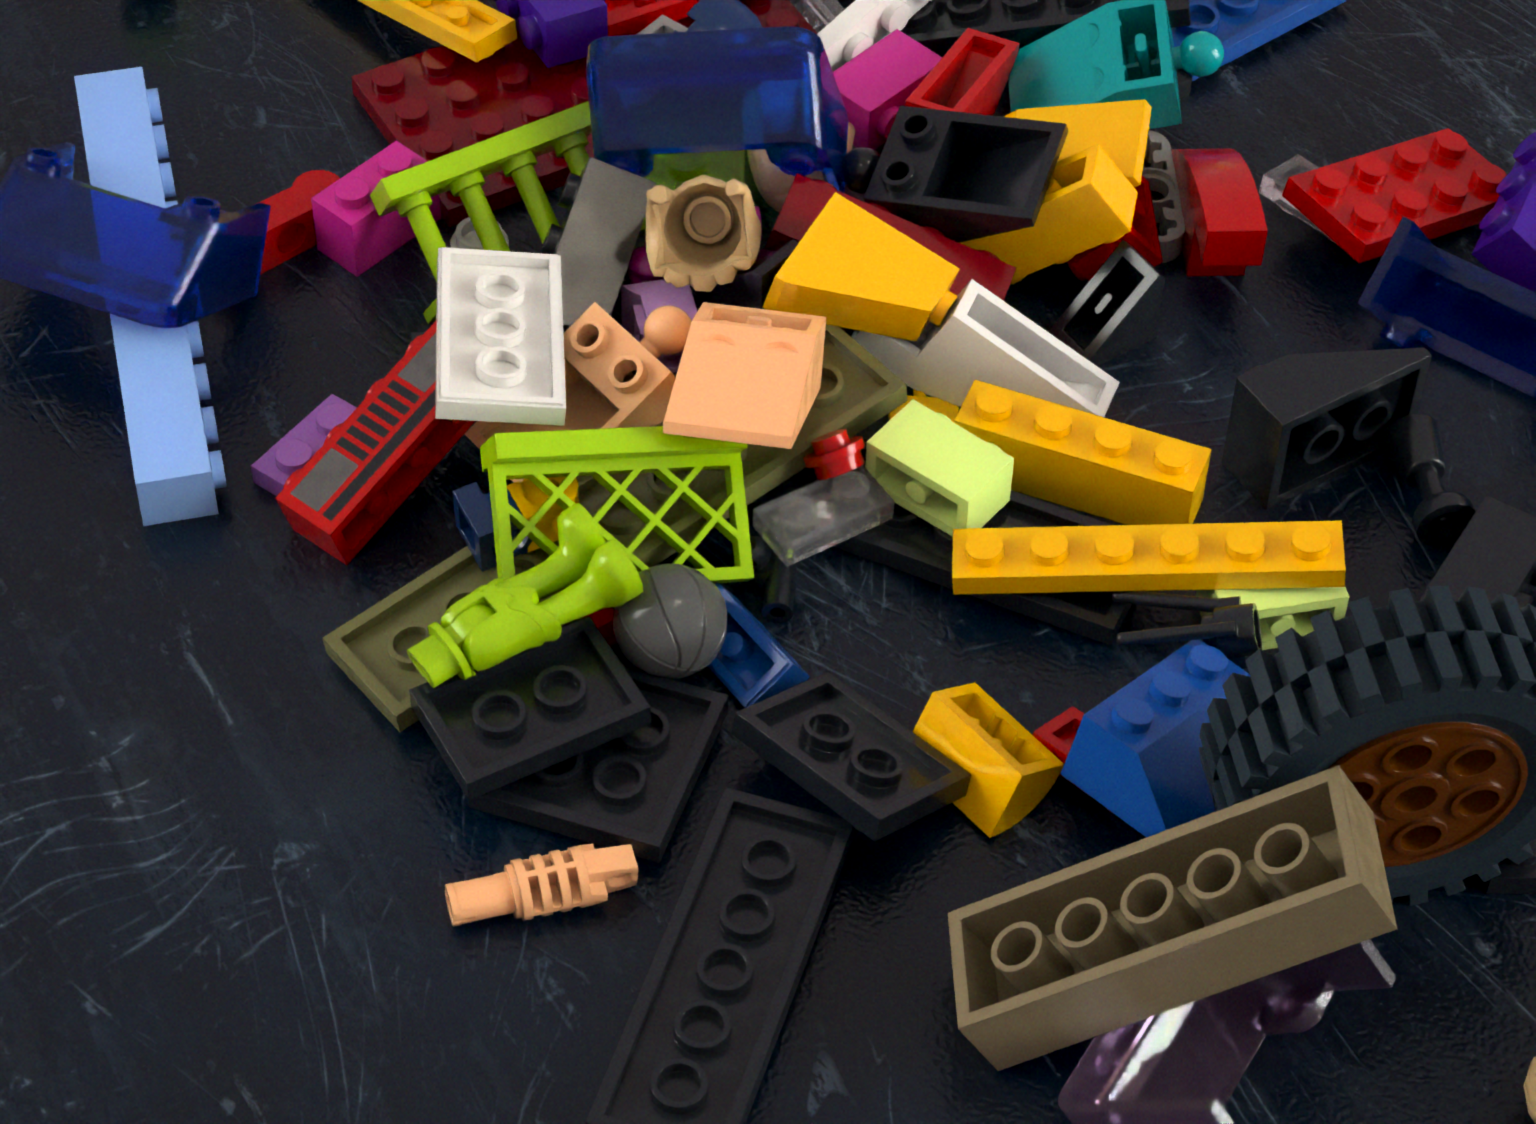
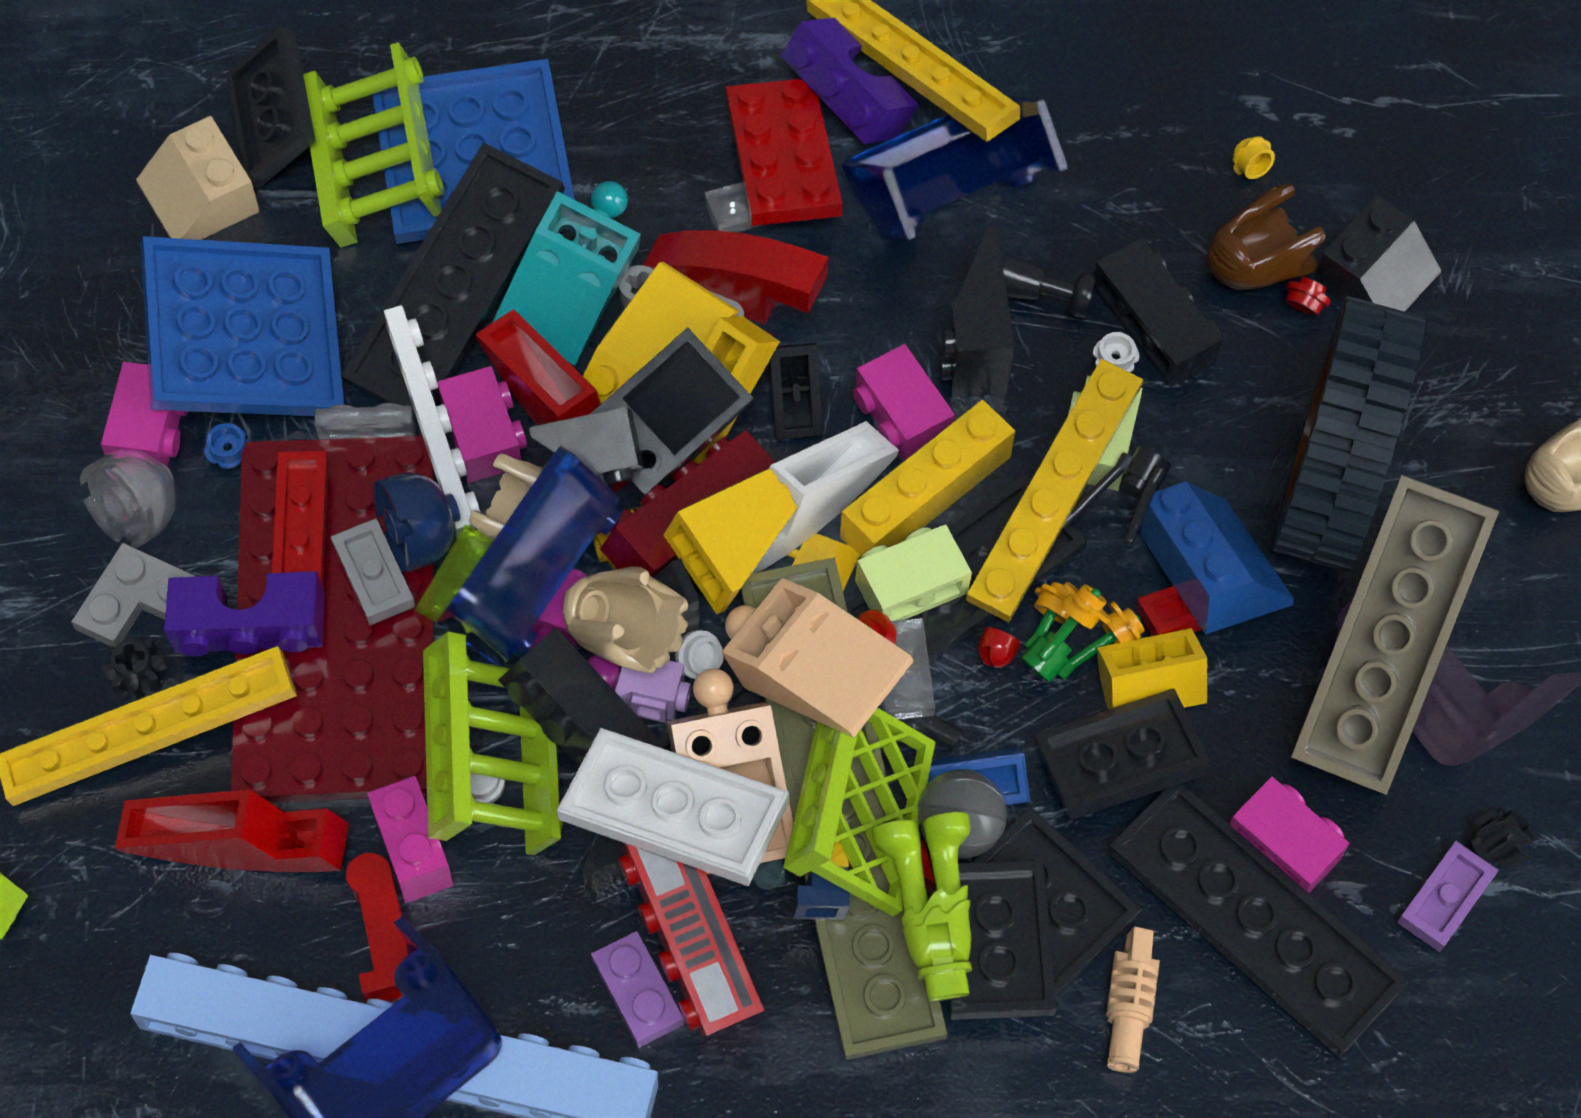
camera: 65 degrees left, 15 degrees up
(310, 88) = (232, 833): none -> red slope
(848, 967) = (1290, 833): none -> dark pink brick
(876, 110) = (601, 440): none -> slope
(918, 604) = (997, 647): none -> red hinge
(994, 621) = (1069, 607): none -> plant
(1175, 393) = (902, 400): none -> dark pink brick
(1391, 572) = (1118, 344): none -> white plate

